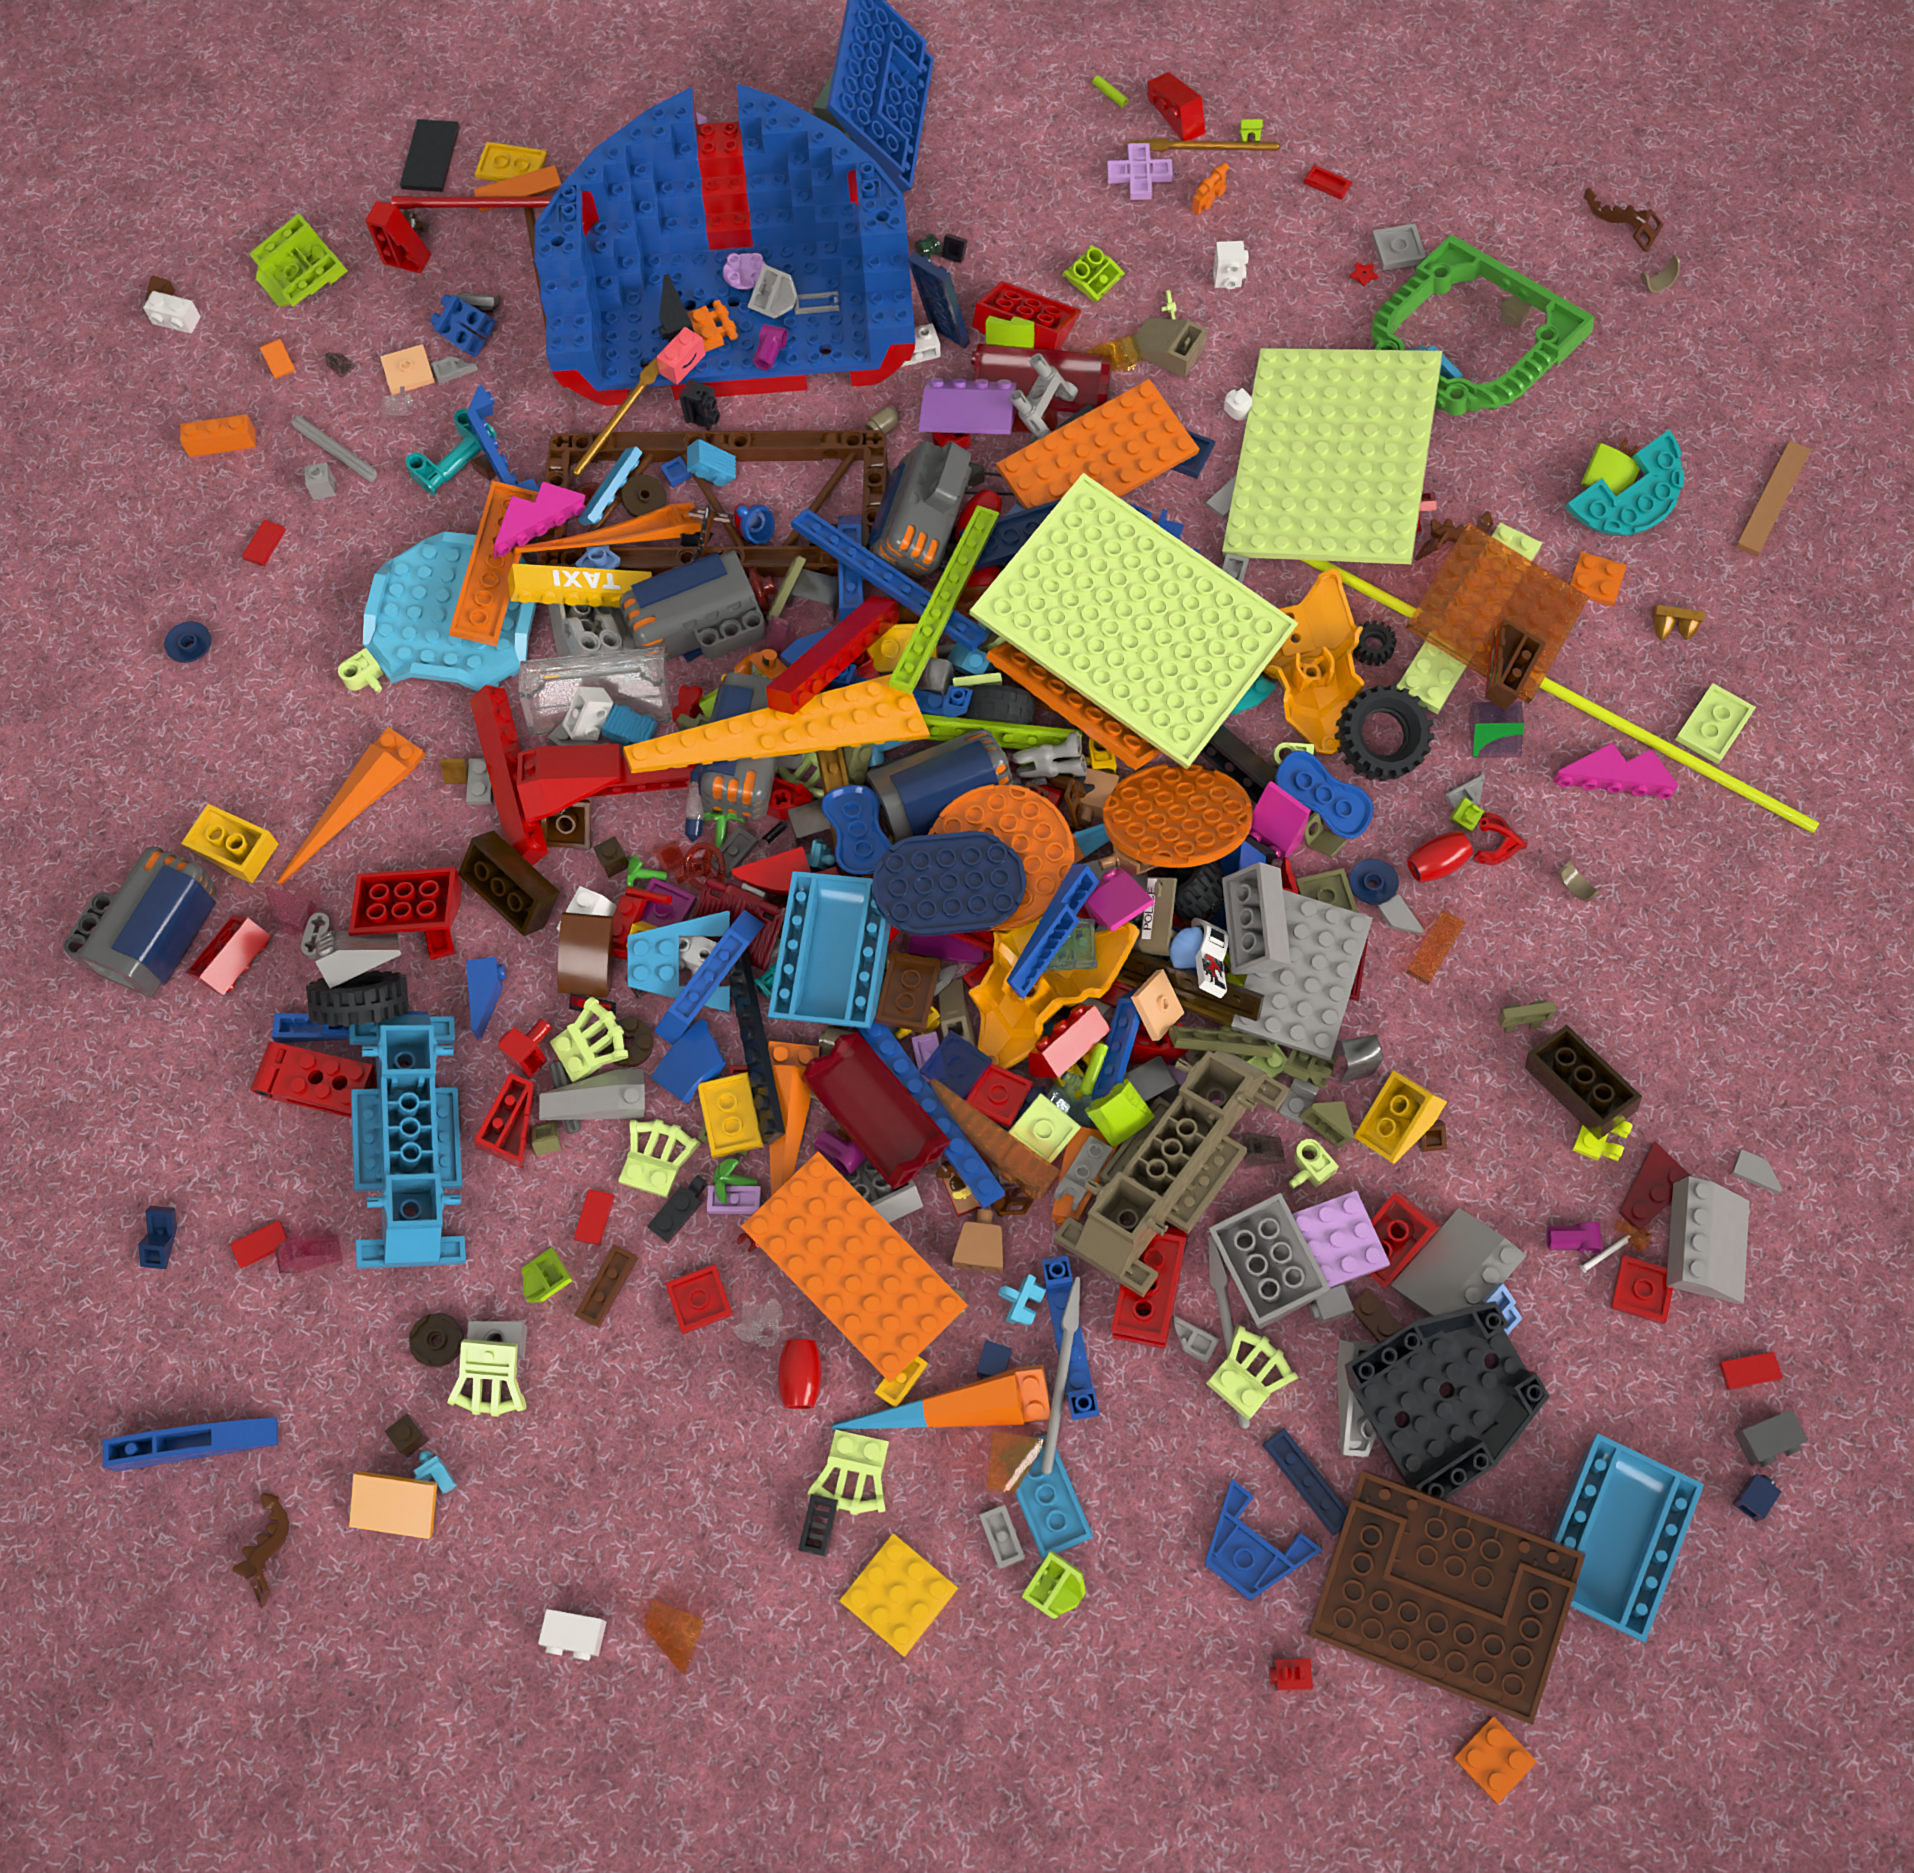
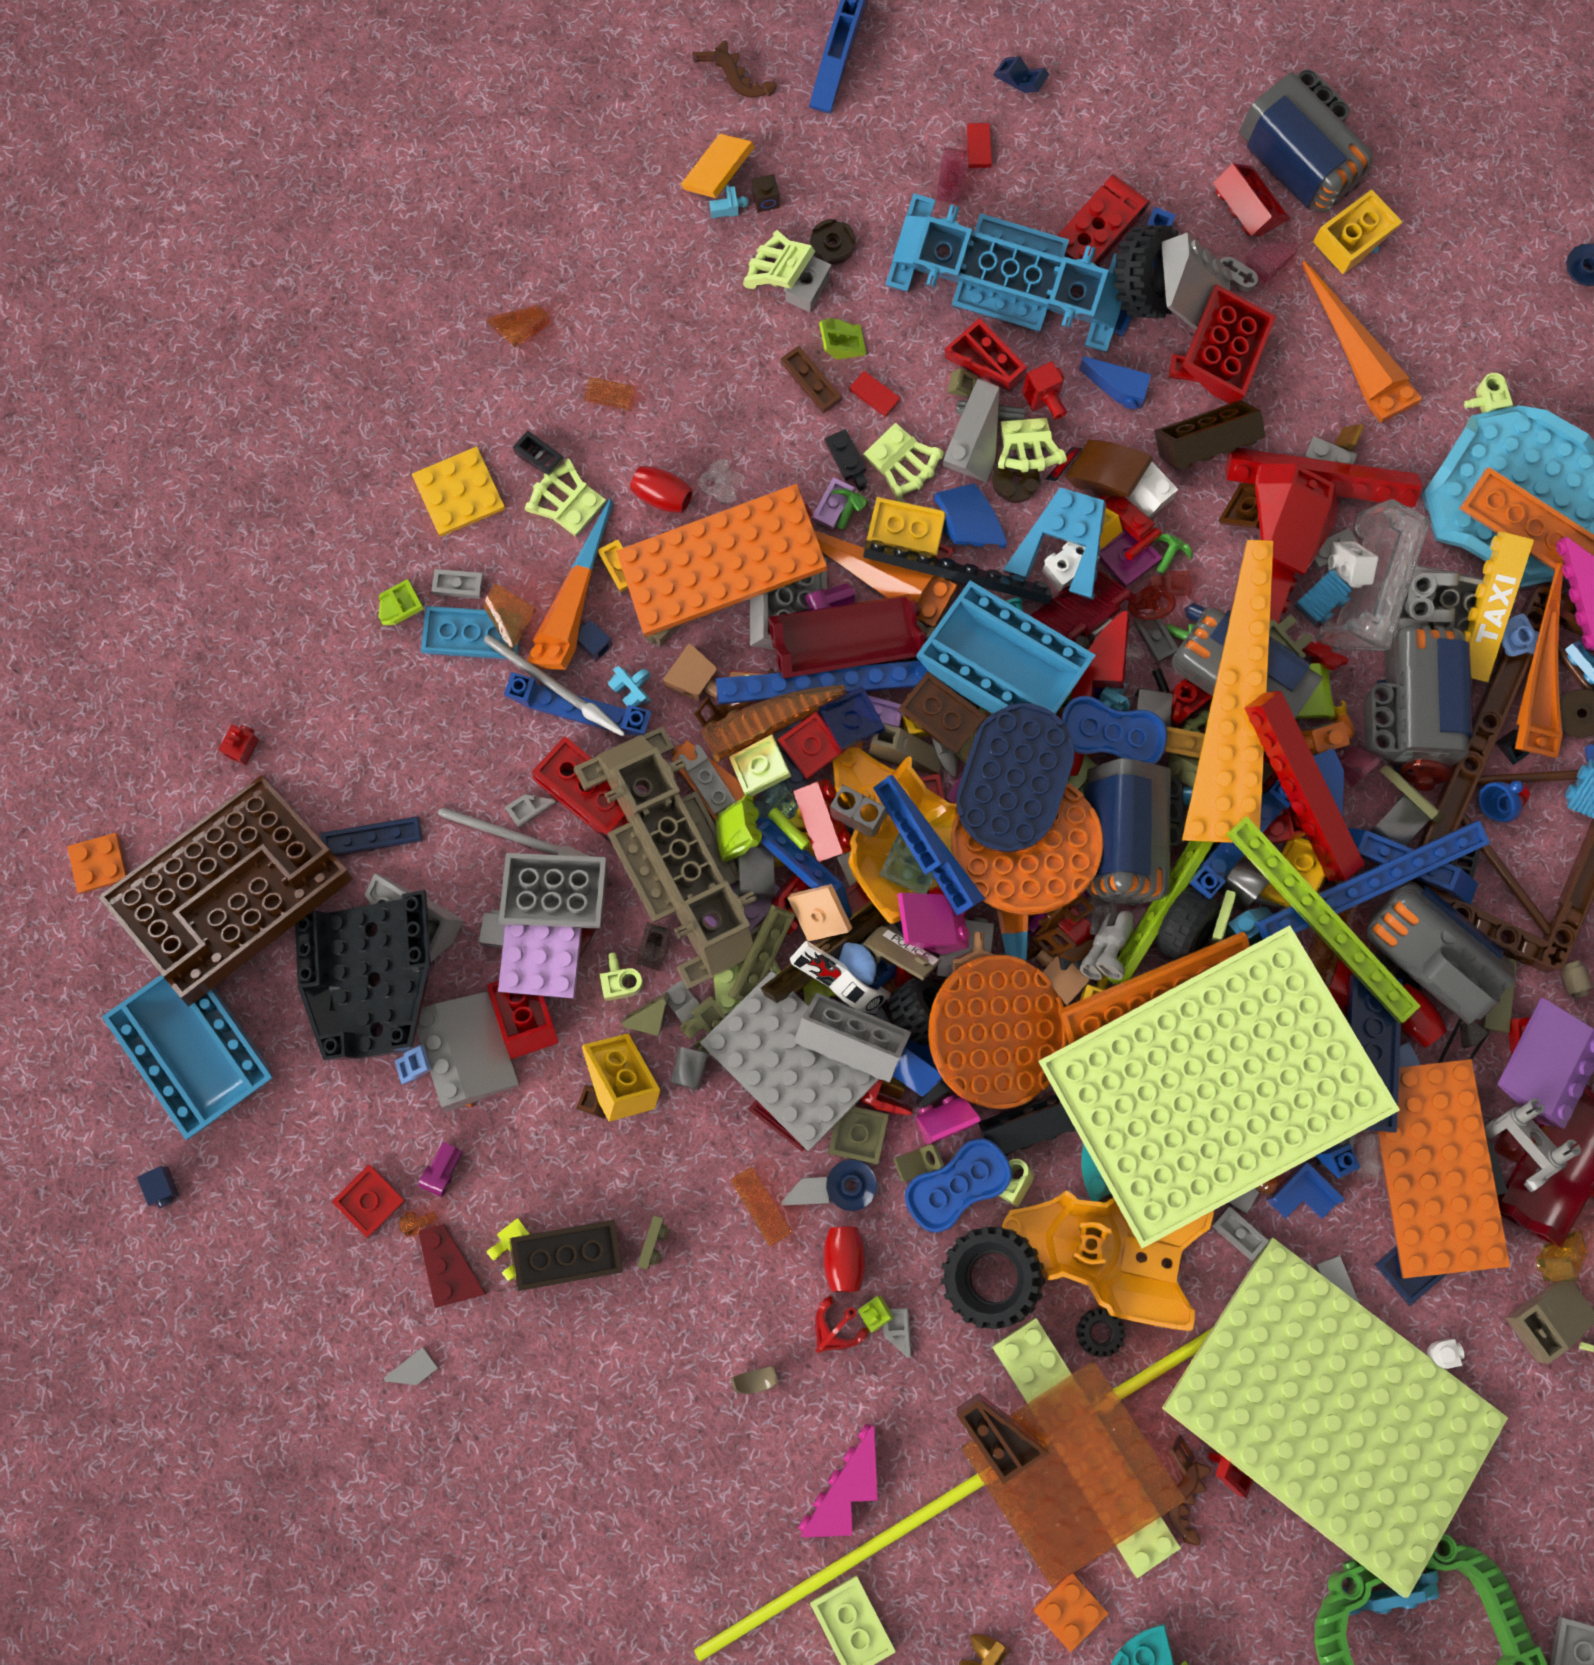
camera: 110 degrees right, 10 degrees up
(572, 1633) = (554, 251): white brick -> none
(611, 856) = (1198, 531): dark brown brick -> none
(699, 1299) = (763, 443): red plate -> none
(706, 526) = (1513, 746): reddish brown piece -> none
(708, 977) = (1041, 563): blue slope -> none
(712, 1489) = (609, 393): none -> clear orange tile
(1050, 1019) = (845, 816): none -> flat silver piece
(1238, 1385) = (470, 820): yellowish green plate -> none
(1246, 1558) = (341, 756): blue wing -> none
(1361, 278) = (1555, 1594): red plate -> none
(1375, 1316) = (466, 963): reddish brown plate -> none
(1496, 730) = (943, 1393): clear purple slope -> none
(1604, 1254) = (416, 1189): white piece -> none
(1708, 1240) = (374, 1282): light grey slope -> none
(1750, 1370) = (256, 1251): red tile -> none
(1771, 1438) = (194, 1229): dark grey brick -> none

